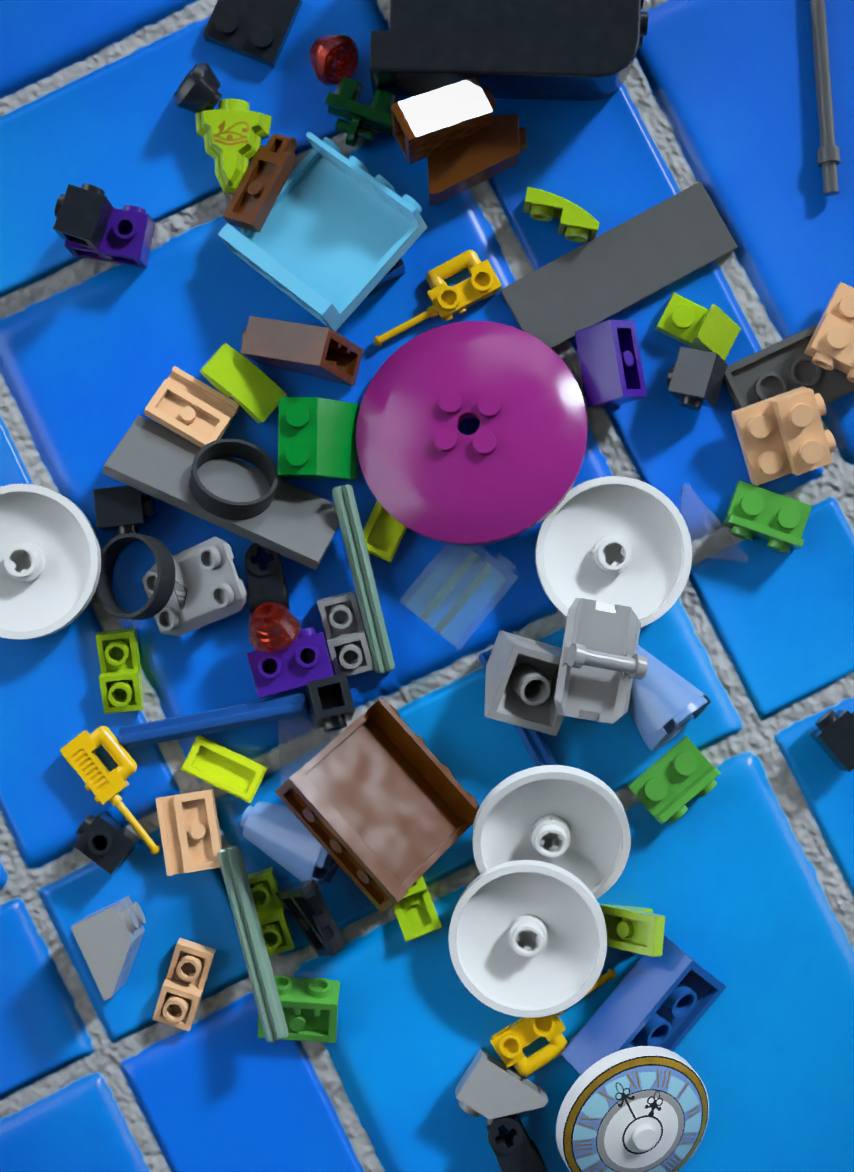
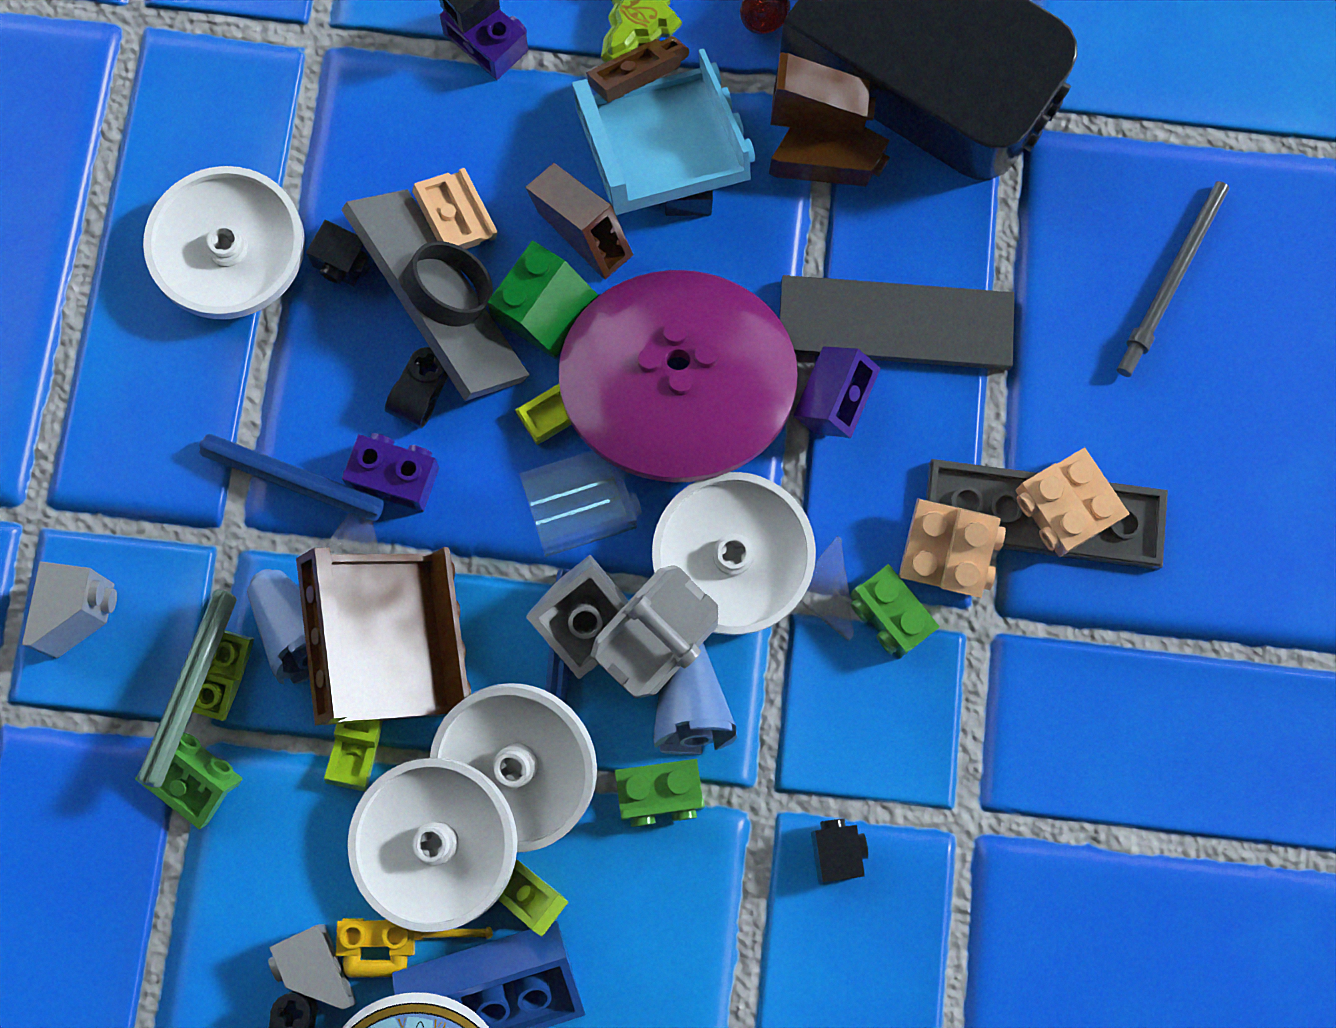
camera: 25 degrees right, 10 degrees down
(104, 783) = (161, 471): yellow piece -> none
(106, 841) = (127, 521): black brick -> none
(120, 670) = (244, 388): lime slope -> none
(165, 576) = (325, 333): black tyre -> none
(184, 984) = (105, 692): light nougat slope -> none
(189, 831) = (204, 558): light nougat plate -> none
(203, 588) = (352, 355): light grey shield -> none
(224, 768) = (272, 526): neon yellow tile -> none
(242, 381) = (512, 214): lime slope -> none
(272, 628) = (395, 426): clear red cone -> none
(312, 916) = (256, 698): black wing -> none
(330, 702) = (400, 522): black brick -> none
(345, 105) = (750, 63): dark green hips -> none
(345, 634) = (455, 479): light grey slope -> none
(363, 578) = (502, 439): sand green axle -> none
(448, 299) = (741, 261): yellow piece -> none
(574, 221) = (881, 257): lime slope -> none
(696, 378) = (905, 451): black brick -> none
(698, 326) = (935, 413): lime slope -> none

